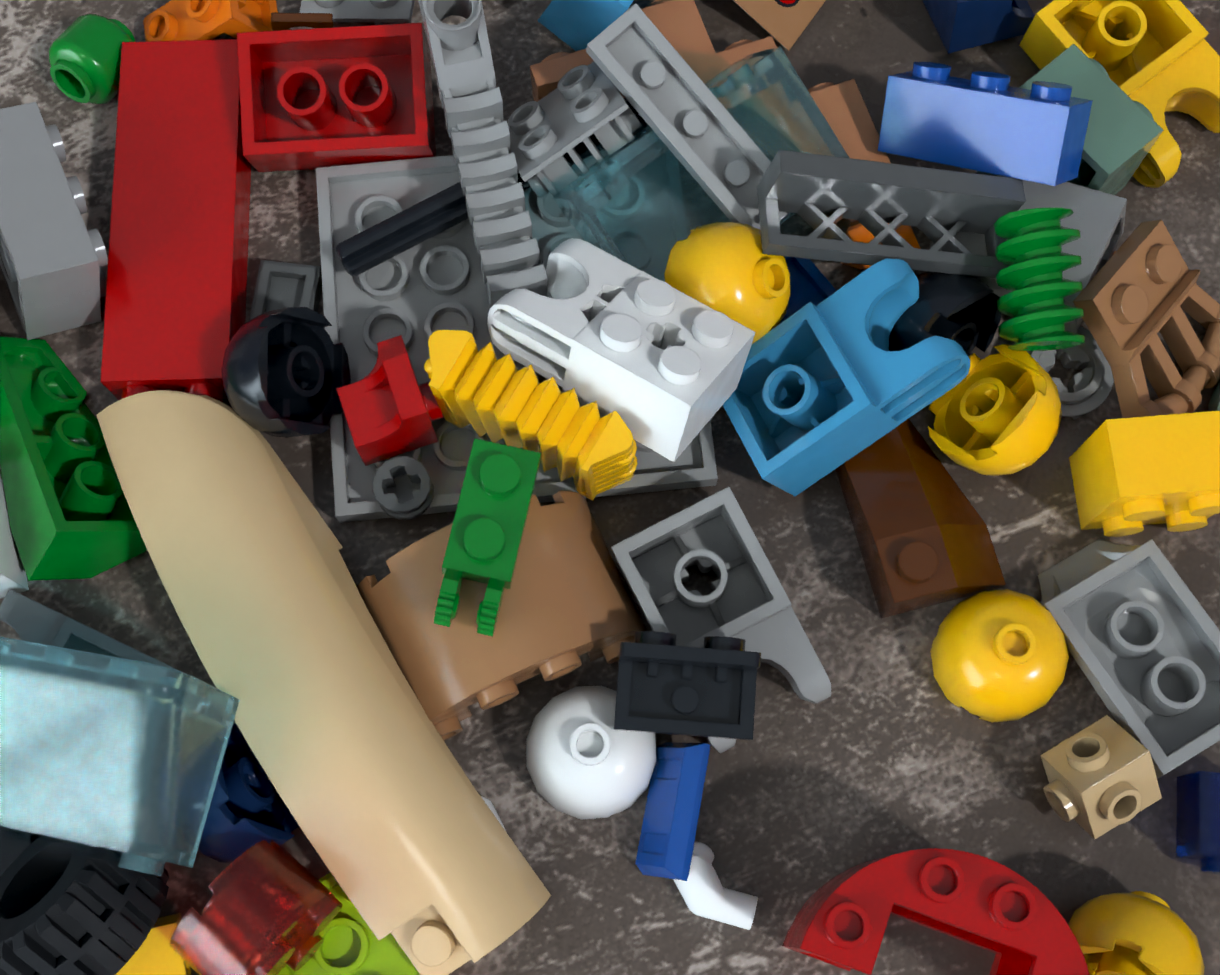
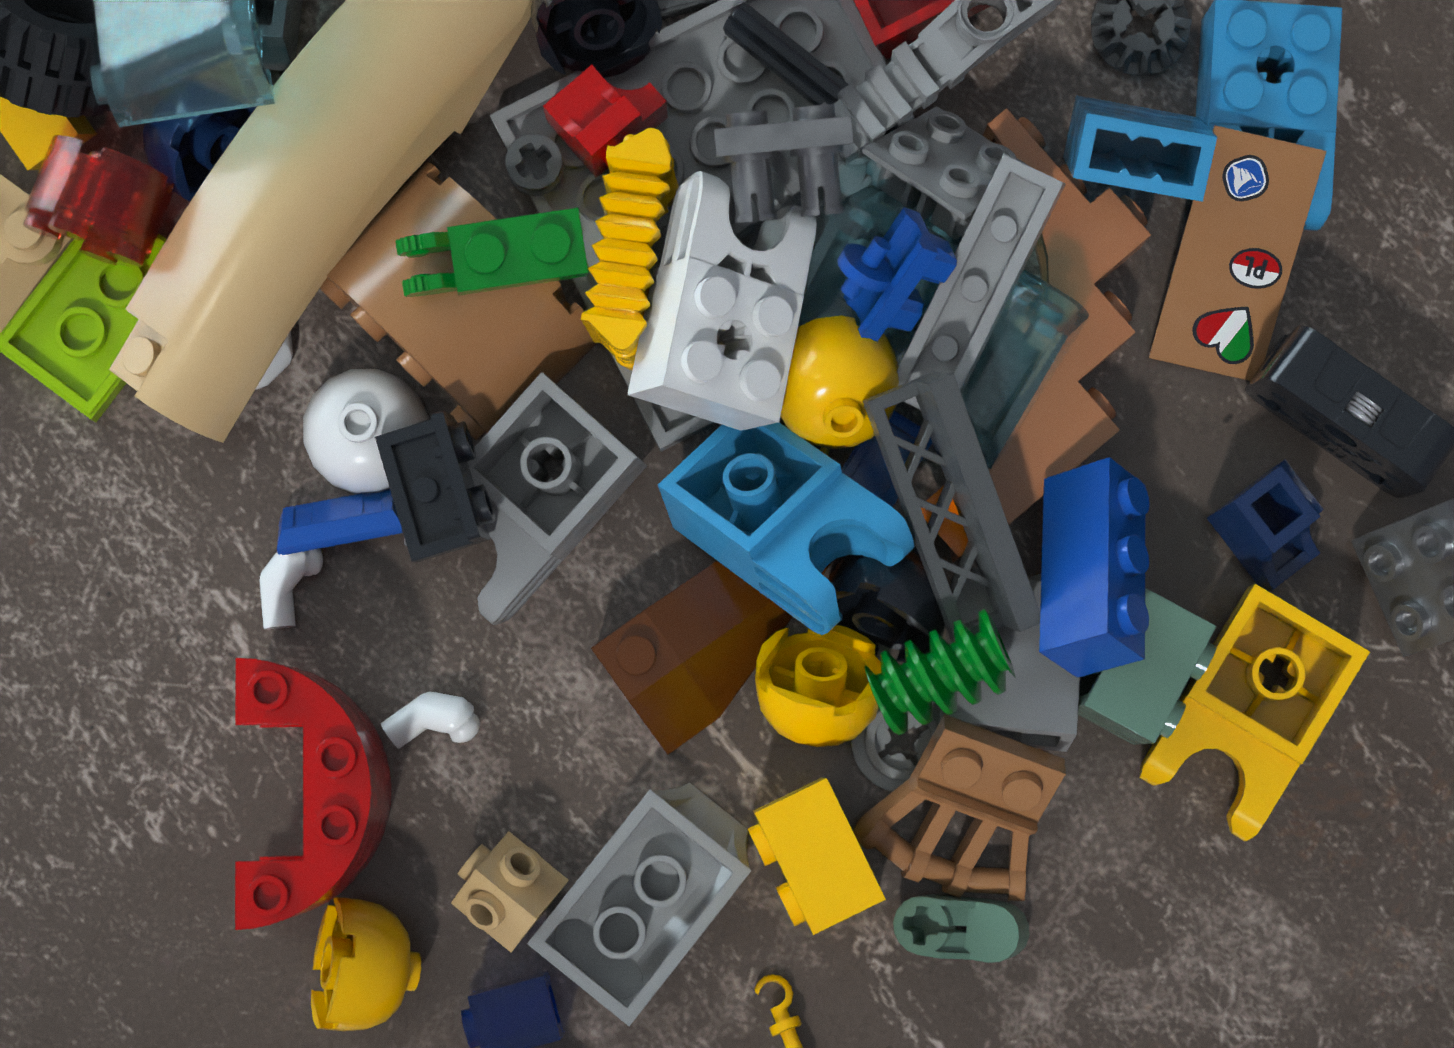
camera: 65 degrees right, 10 degrees up
(497, 197) = (811, 136): none -> flat silver plate
(655, 185) = (886, 272): none -> blue hips
(892, 790) = (433, 712): none -> white arm
(999, 655) = (594, 768): yellow cylinder -> none

